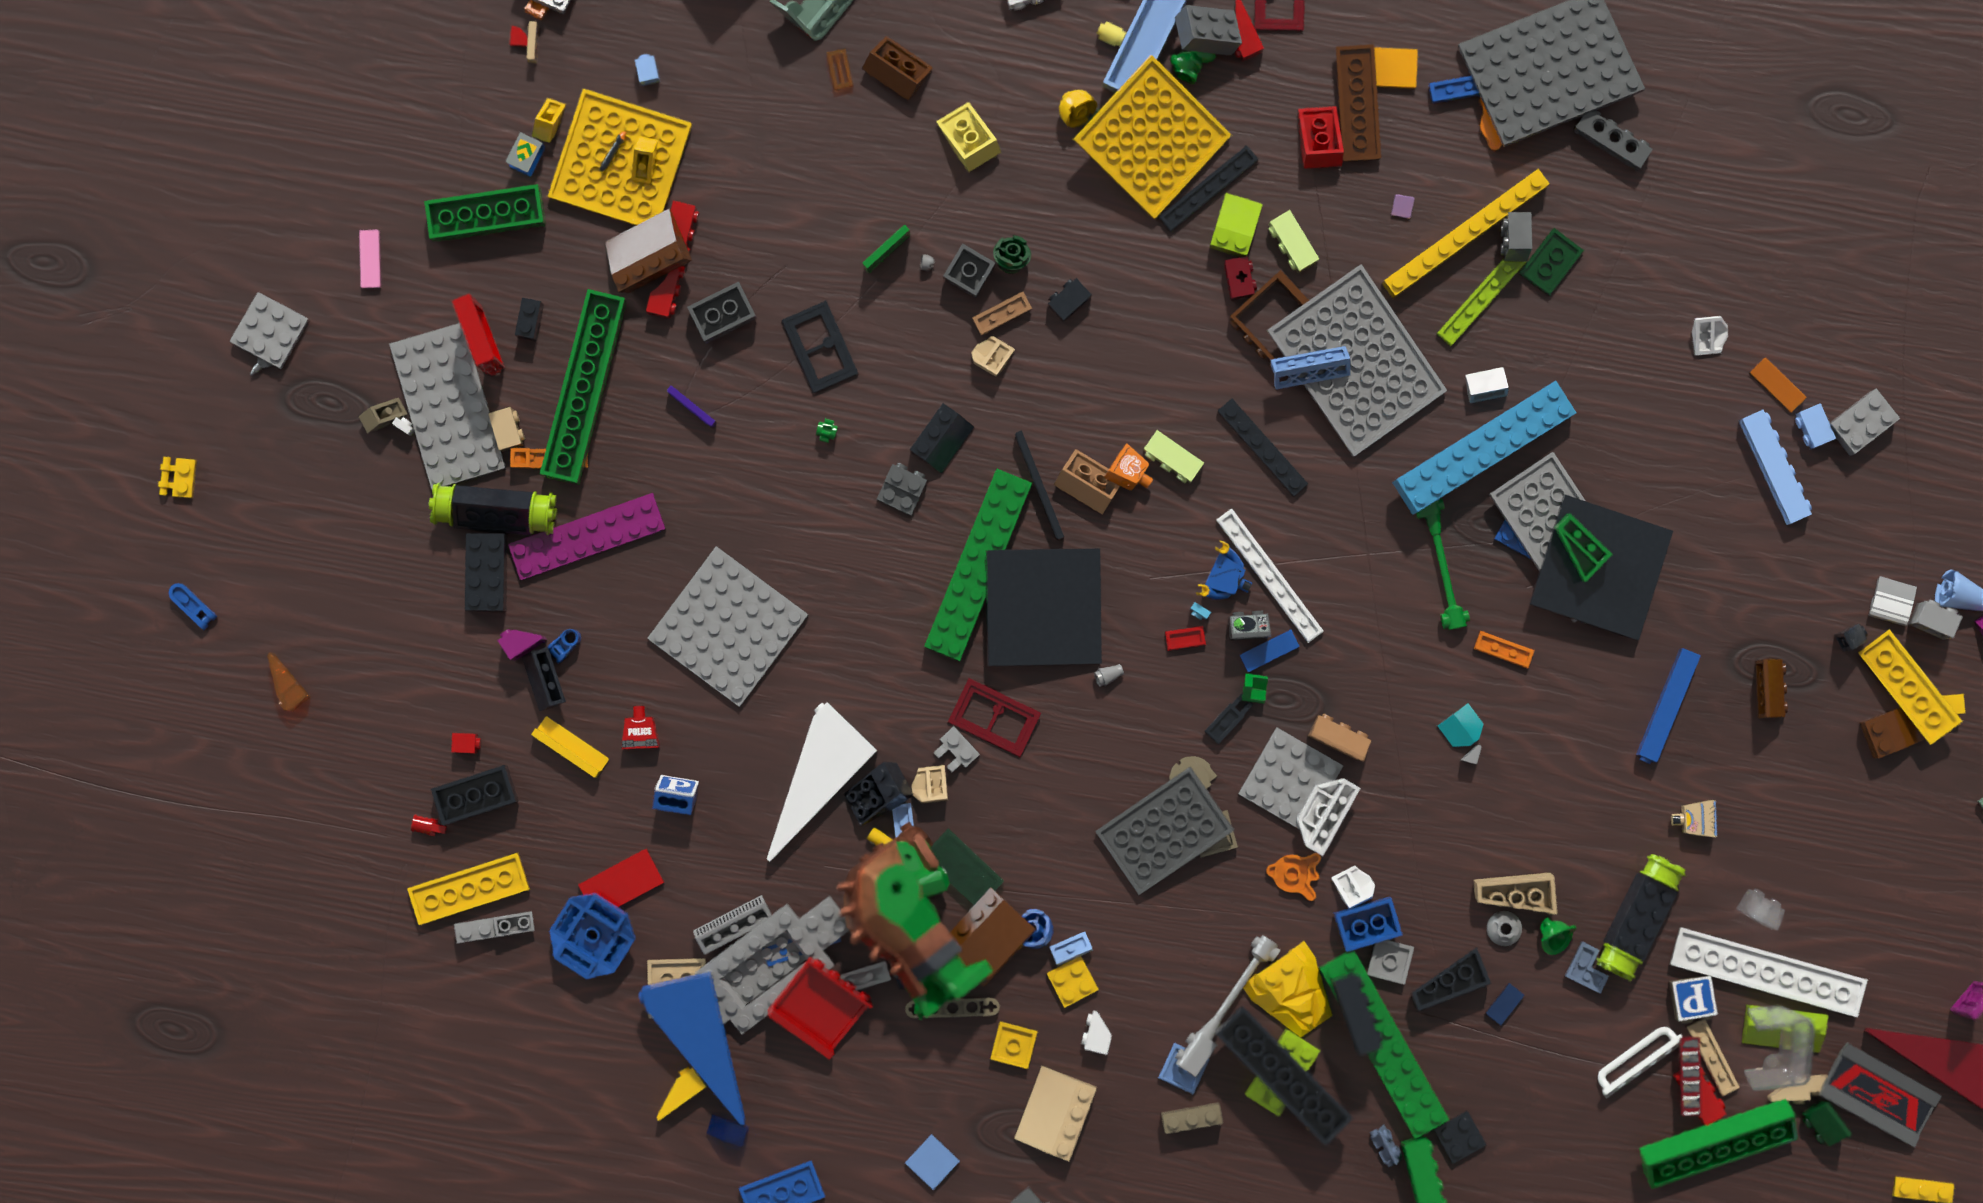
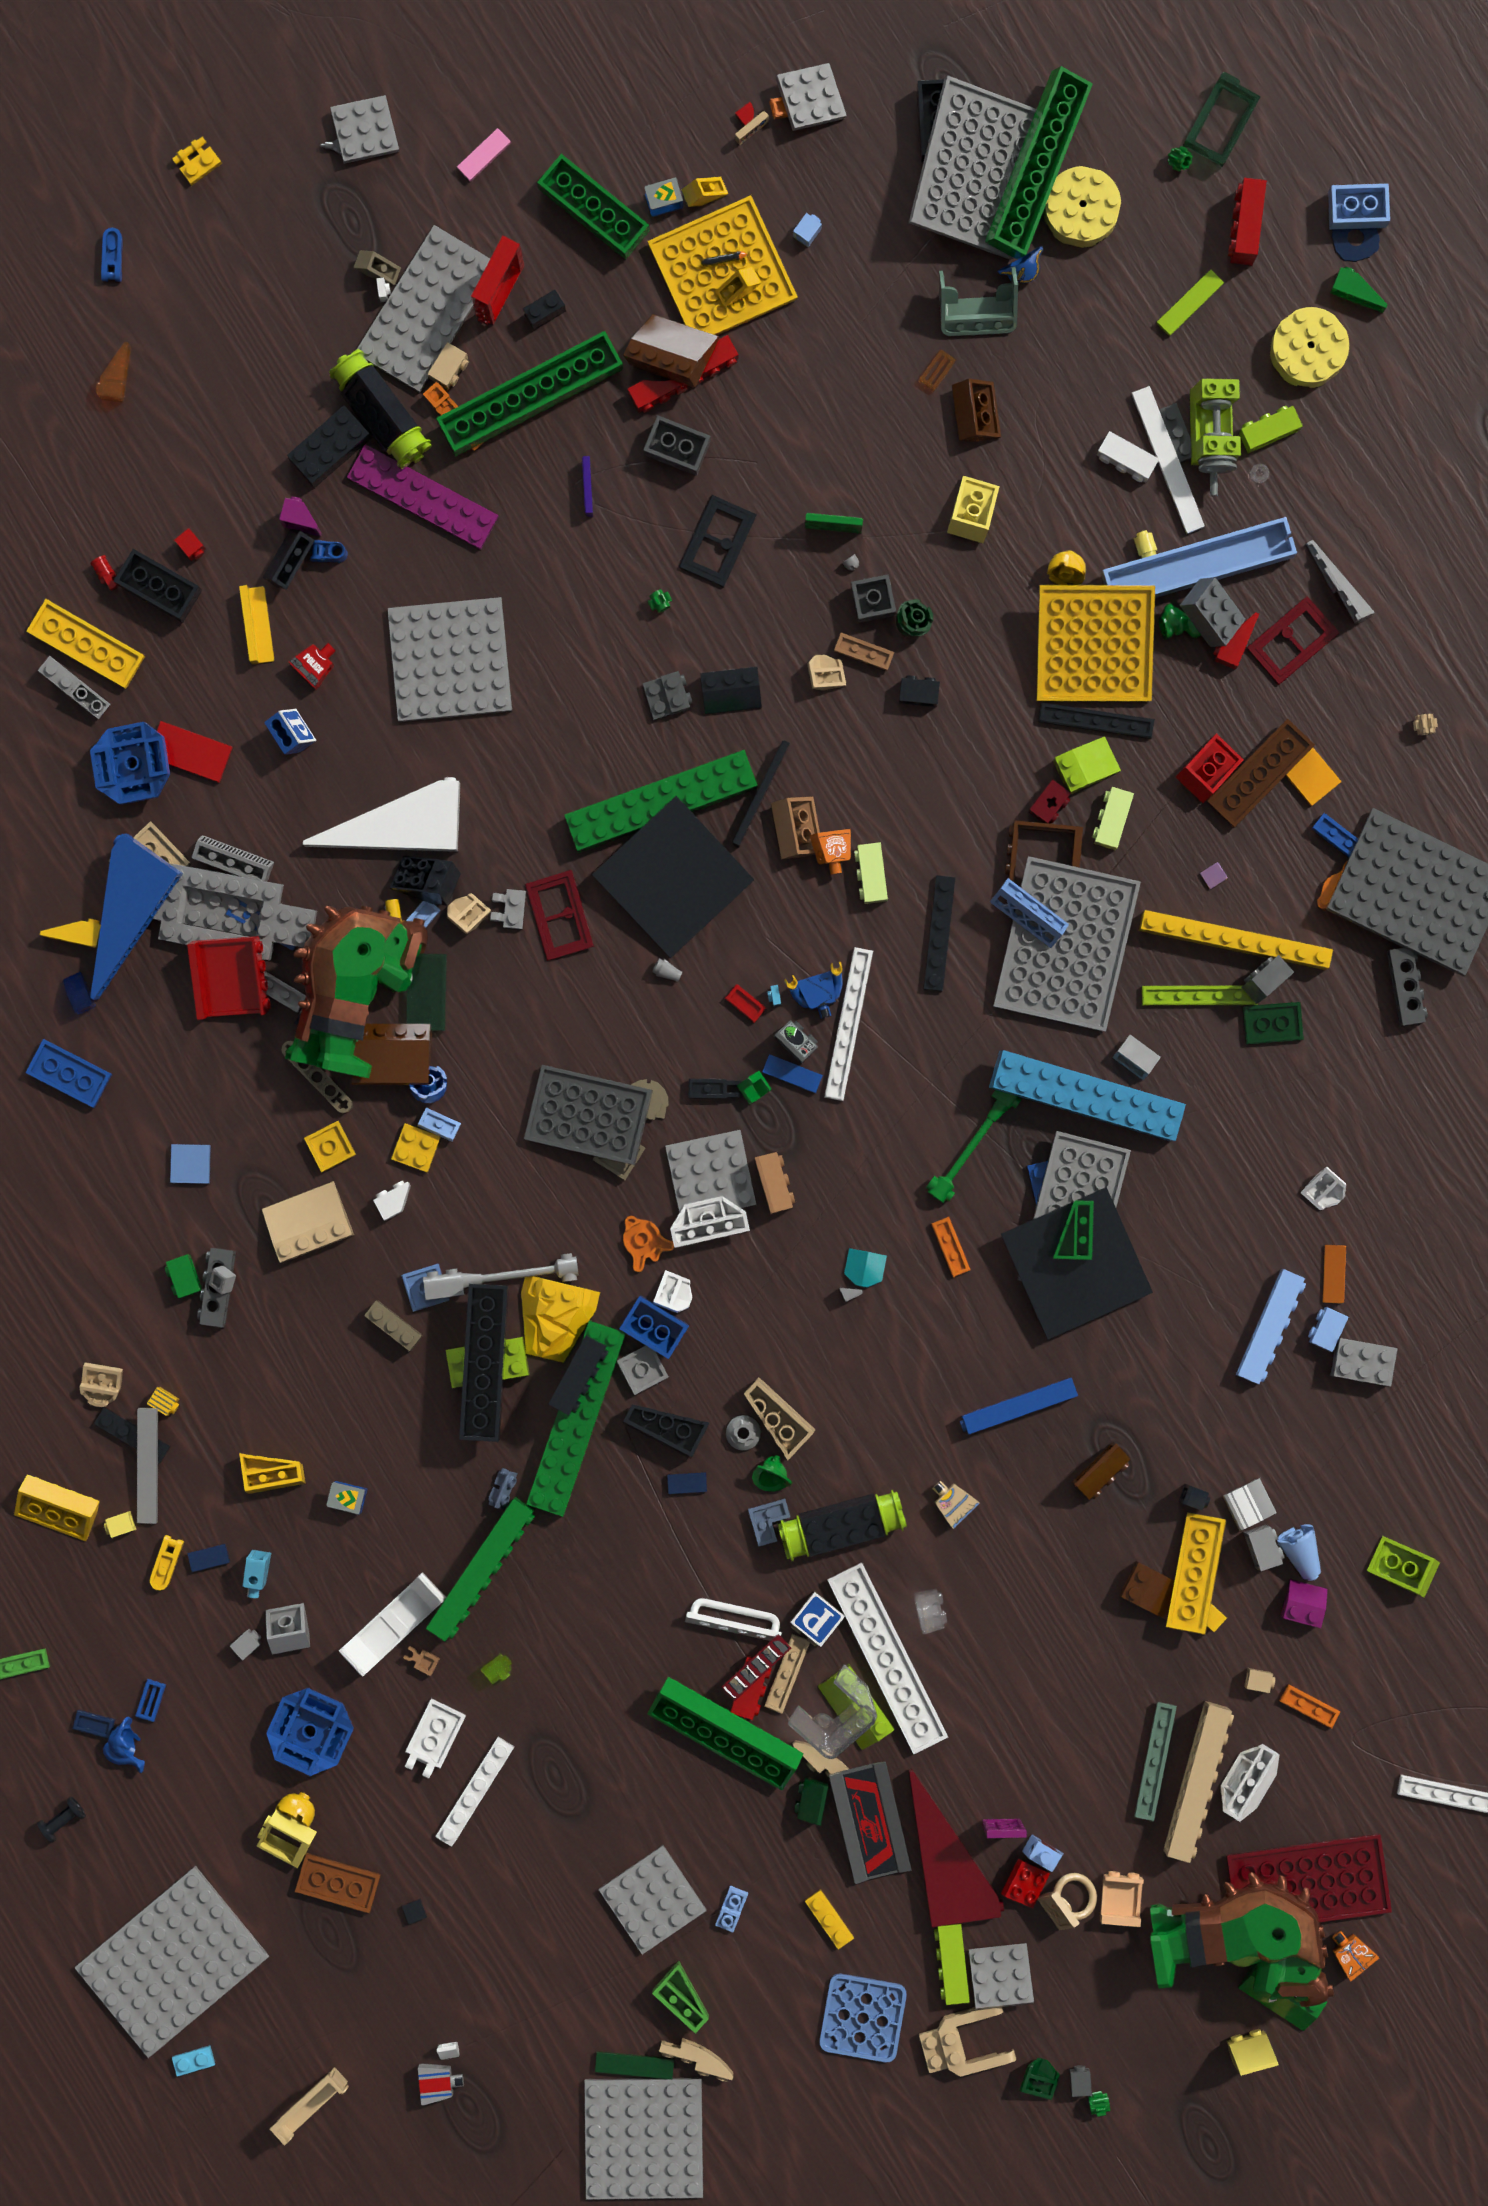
camera: 45 degrees right, 0 degrees up
(1460, 1136) = (558, 1537): black plate -> none

